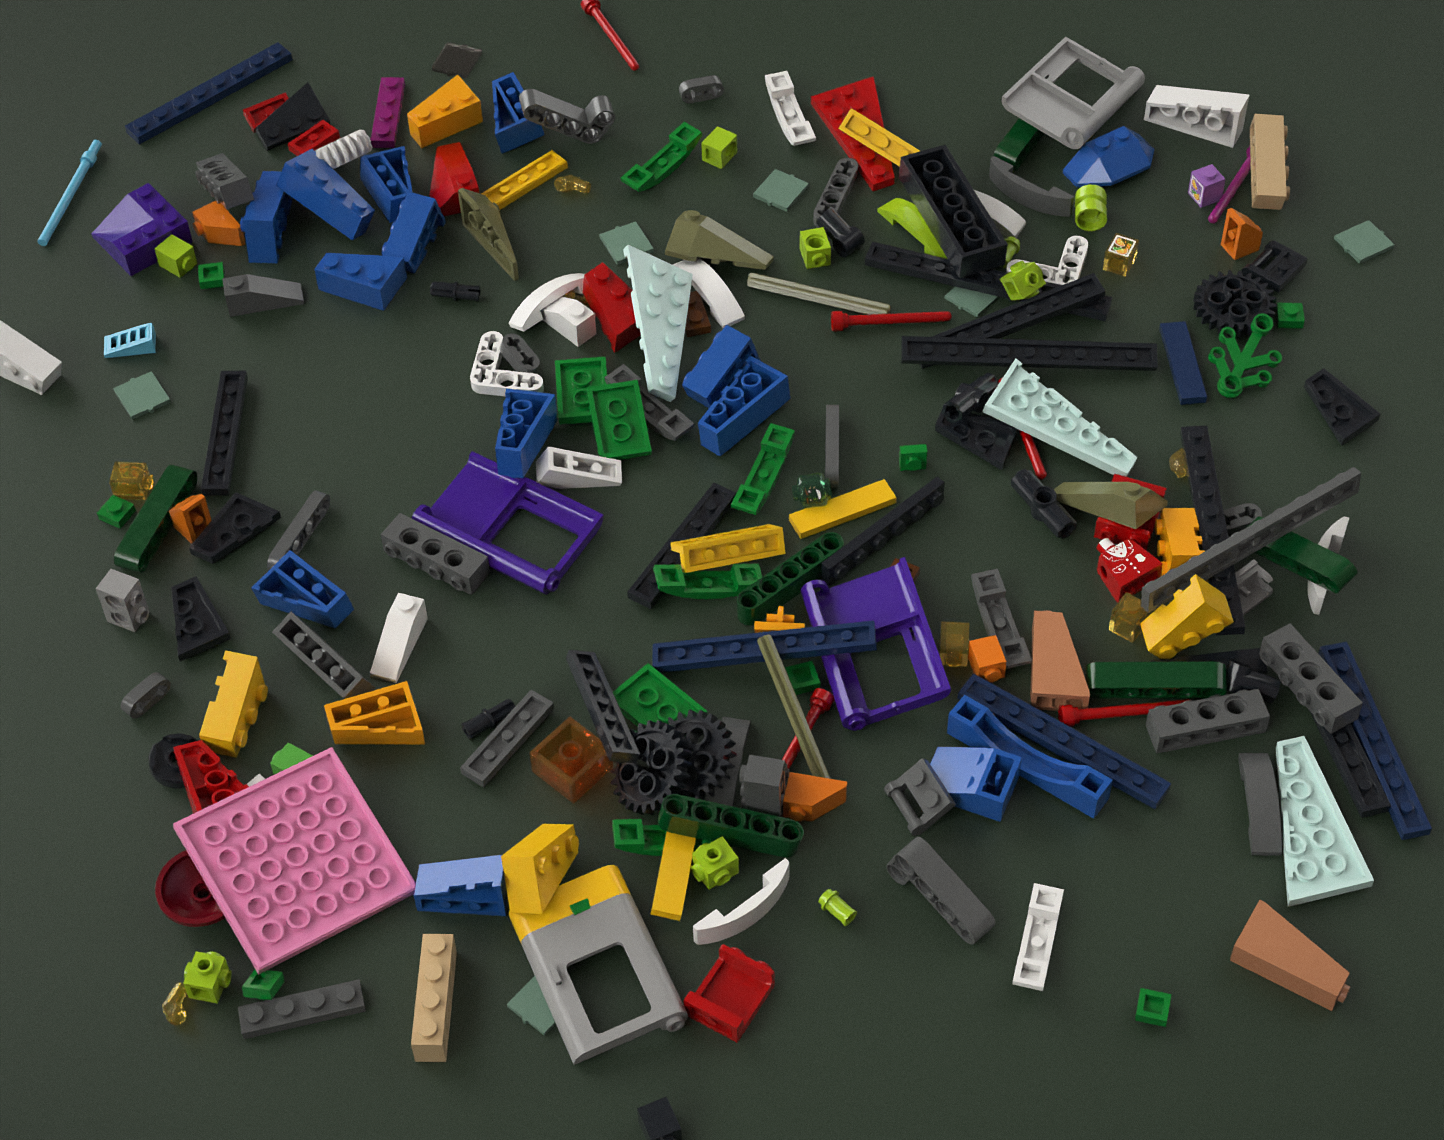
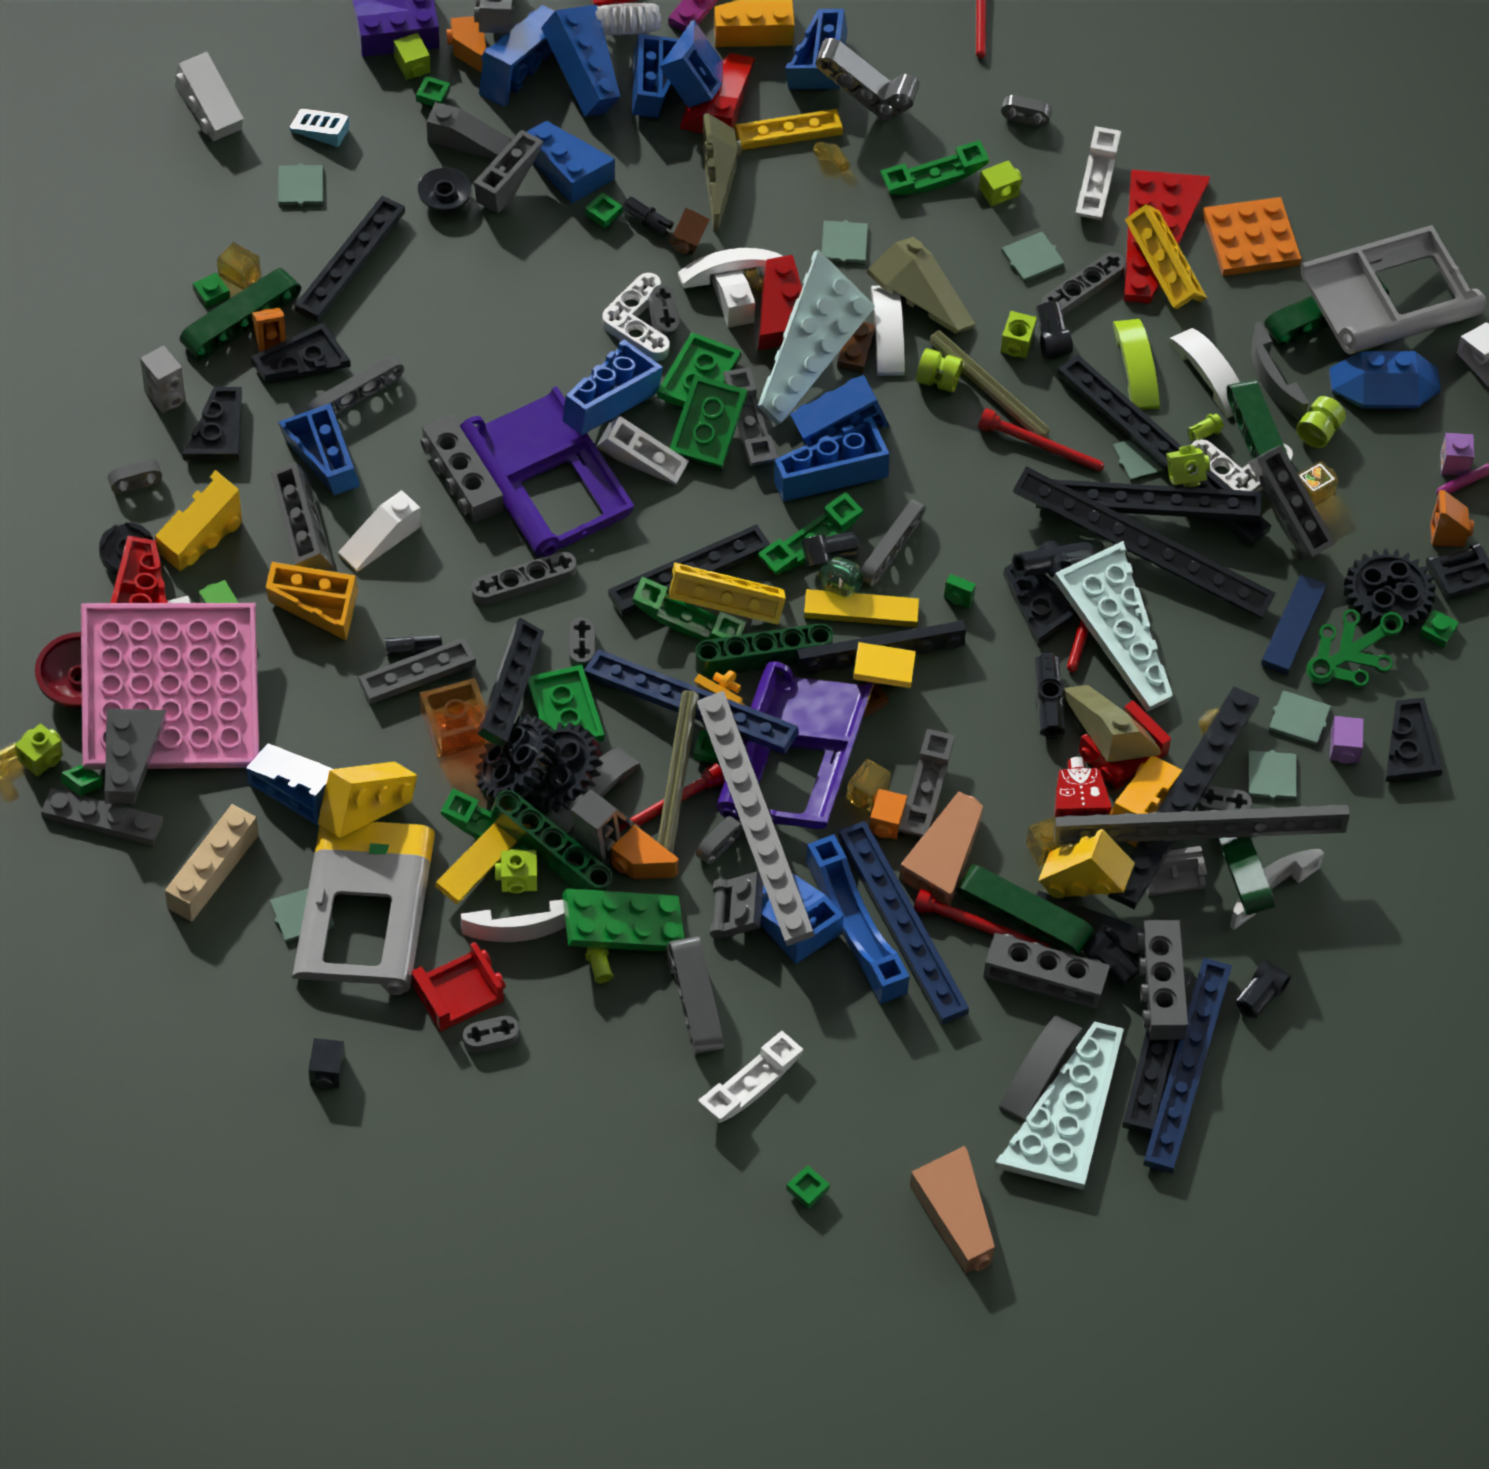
camera: 25 degrees right, 5 degrees up
(271, 343) = (444, 189): none -> black dish
(297, 935) = (129, 748): none -> dark grey wedge
(318, 306) = (506, 172): none -> dark grey slope
(414, 229) = (643, 135): blue wedge -> none
(416, 302) = (603, 210): none -> green plate
(422, 164) = (694, 67): none -> blue slope
(500, 286) = (688, 231): none -> reddish brown brick
(544, 616) = (521, 574): none -> dark grey beam
(628, 649) = (577, 643): none -> dark grey beam
(766, 303) = (930, 366): none -> lime wheel
(784, 475) = (823, 548): none -> black piece
(790, 1025) = (491, 1034): none -> dark grey beam
(834, 859) = (622, 919): none -> green plate
(864, 750) = (719, 840): none -> dark grey beam
(894, 714) = (755, 819): none -> light grey plate
(902, 540) = (884, 665): none -> yellow slope
(934, 105) = (1251, 236): none -> orange plate
(952, 211) = (1169, 361): black brick -> none
(1058, 236) = (1253, 417): none -> dark green beam
(1123, 269) = (1292, 502): none -> dark grey brick
(1240, 429) = (1299, 717): none -> sand green piece
(1254, 481) = (1272, 775): none -> sand green piece
(1292, 427) = (1346, 739): none -> medium lavender brick
(1382, 646) = (1266, 984): none -> black piece

